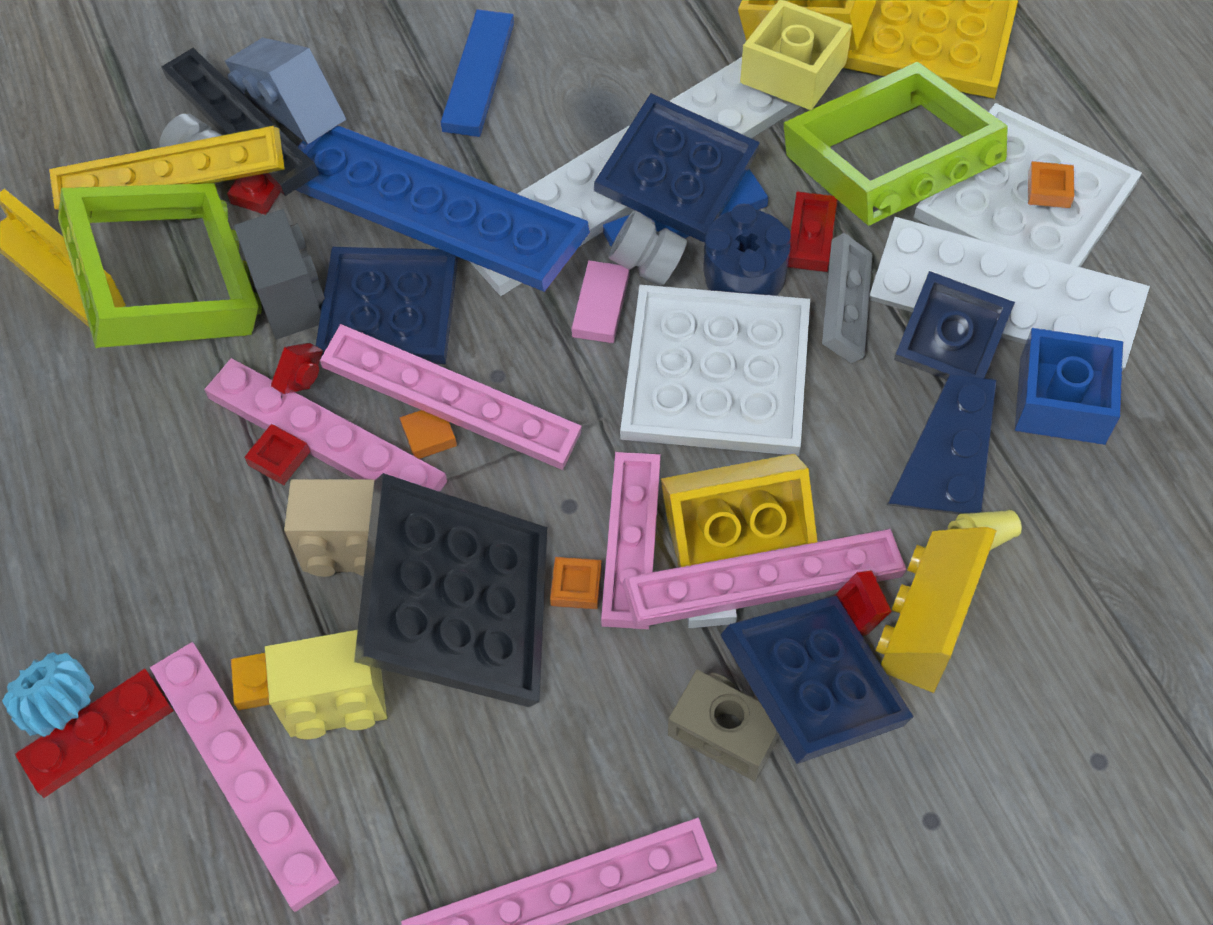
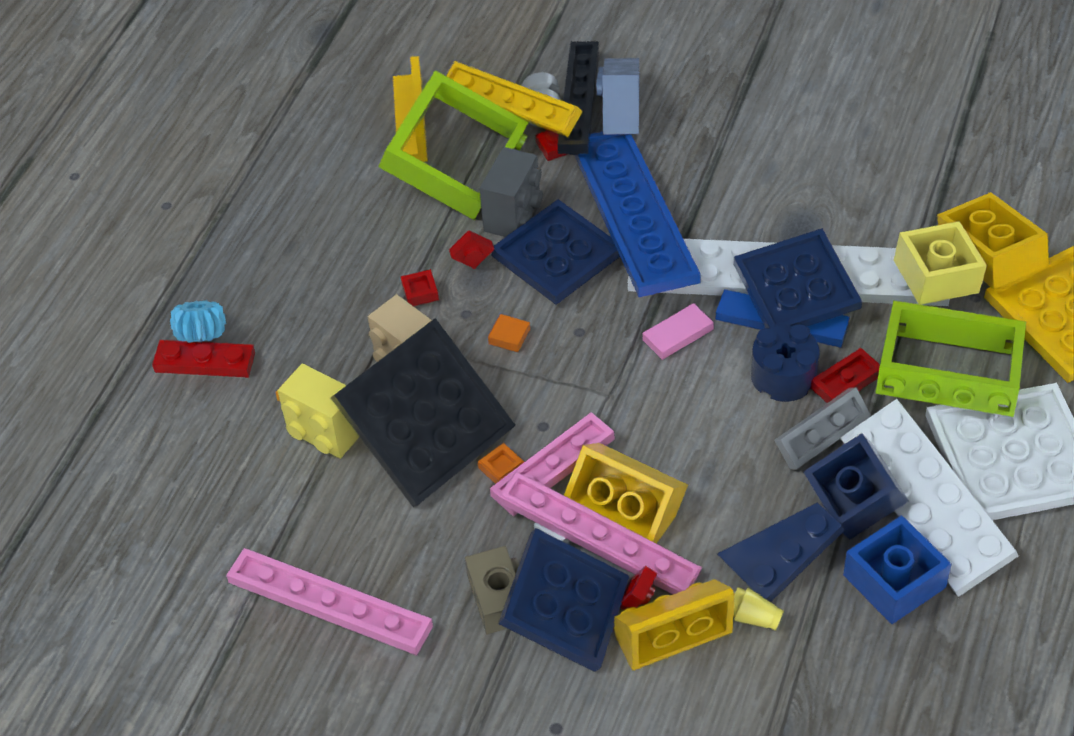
camera: 45 degrees right, 10 degrees down
(244, 777) = (247, 431): bright pink plate -> none
(327, 434) = (455, 297): bright pink plate -> none
(451, 396) = (535, 322): bright pink plate -> none
(477, 73) = (749, 156): blue tile -> none
(651, 251) = (726, 313): light grey wheel -> none
(717, 370) = (701, 413): white plate -> none
(1050, 184) = (1025, 450): orange plate -> none

